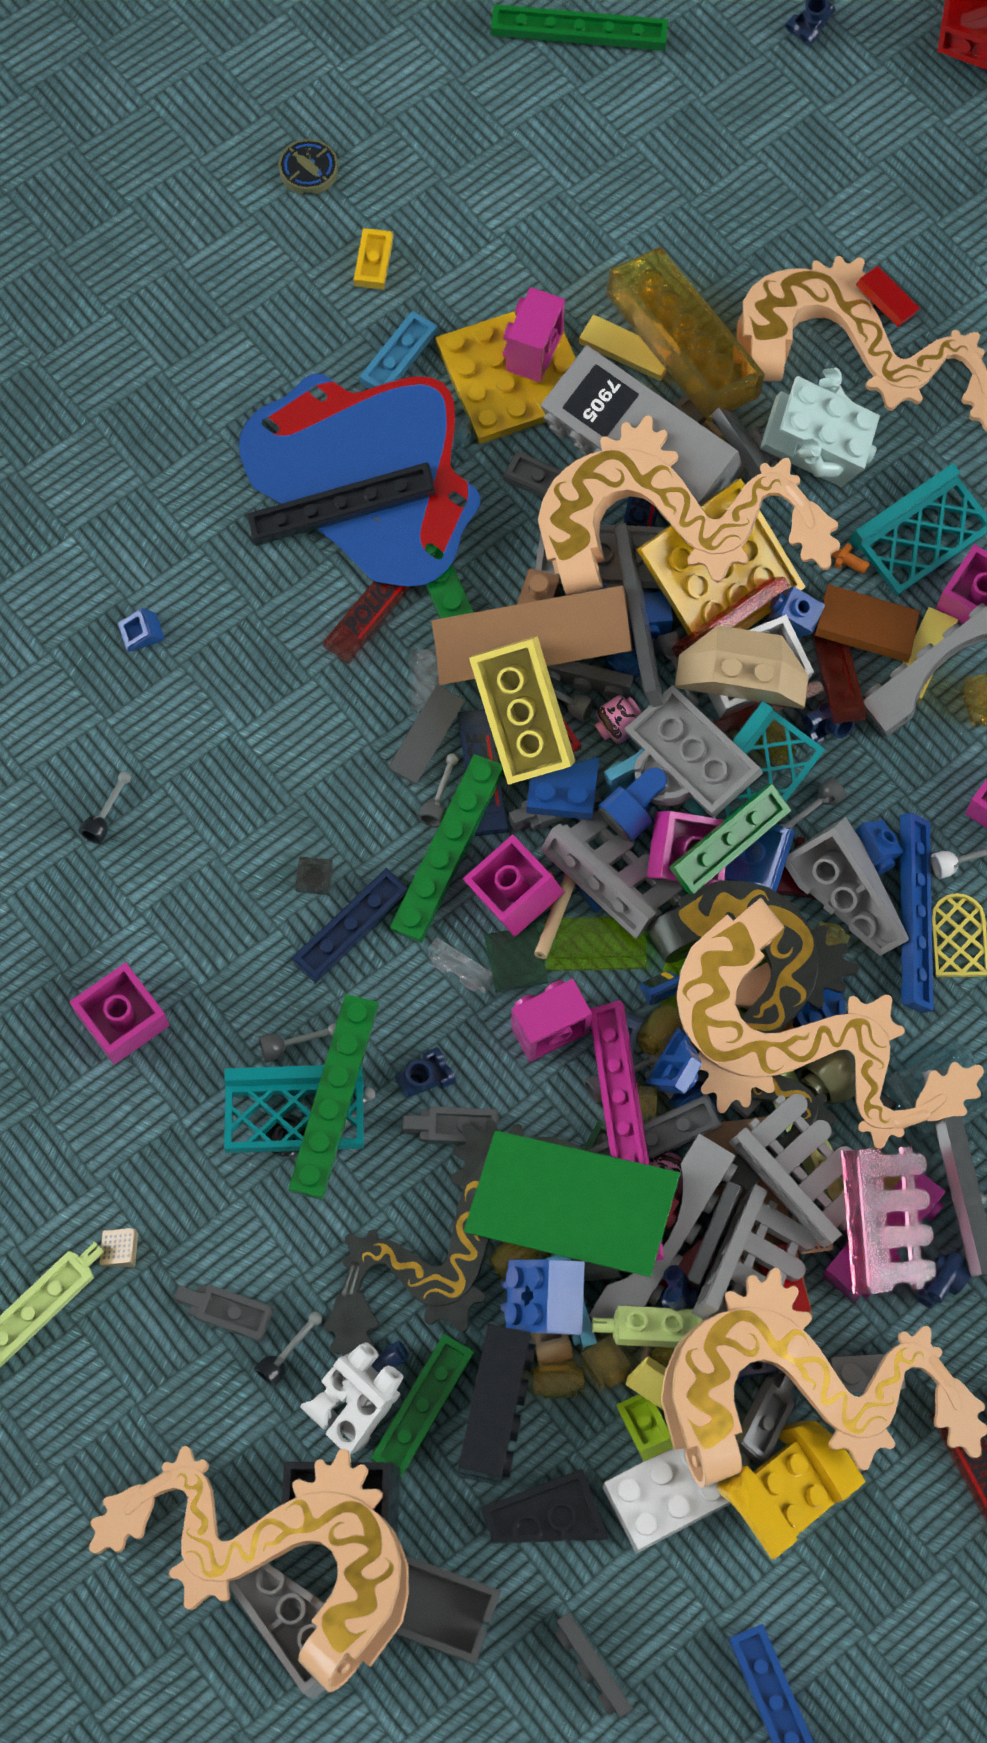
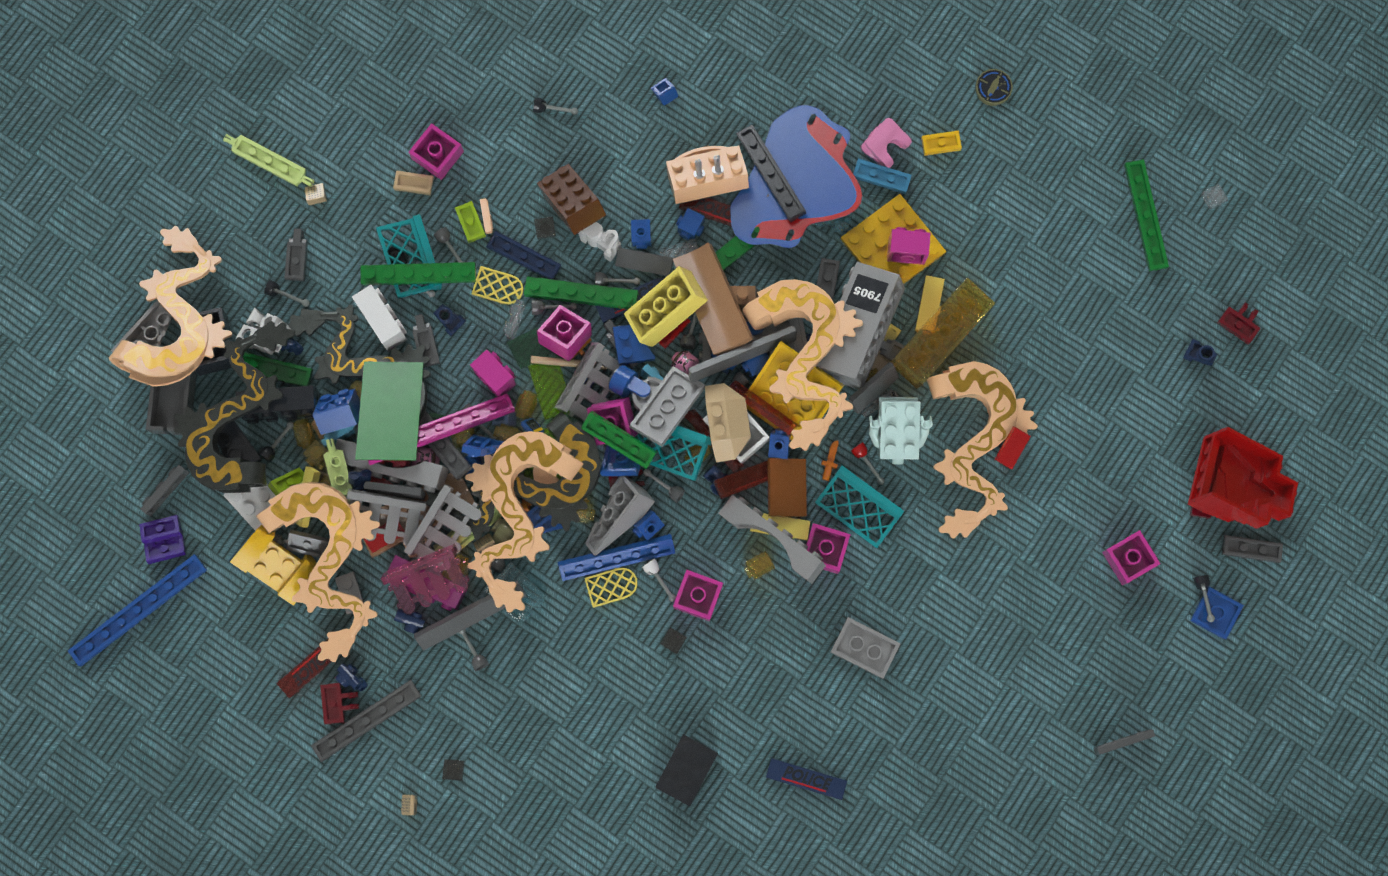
camera: 75 degrees right, 10 degrees up
(157, 1073) = (413, 182): none -> tan tile
(262, 994) = (470, 222): none -> lime plate
(265, 963) = (486, 216): none -> light nougat tile
(288, 806) = (571, 199): none -> reddish brown brick
(310, 595) = (707, 173): none -> light nougat piece
(340, 340) = (876, 144): none -> bright pink piece
(360, 791) = (606, 241): none -> white hips
(376, 962) = (495, 272): none -> light yellow window
(377, 725) = (641, 233): none -> blue brick
(385, 648) = (690, 224): none -> blue brick
(391, 1184) = (380, 317): none -> white brick
(449, 924) = (538, 306): none -> hinge
(505, 1547) = (202, 428): none -> pearl dark grey animal
(574, 1454) = (268, 452): none -> hinge
(615, 985) = (526, 404): none -> clear yellow brick
(682, 1695) = (162, 539): none -> dark purple slope
(835, 504) = (860, 452): none -> hinge
(846, 1123) = (484, 542): none -> tan slope

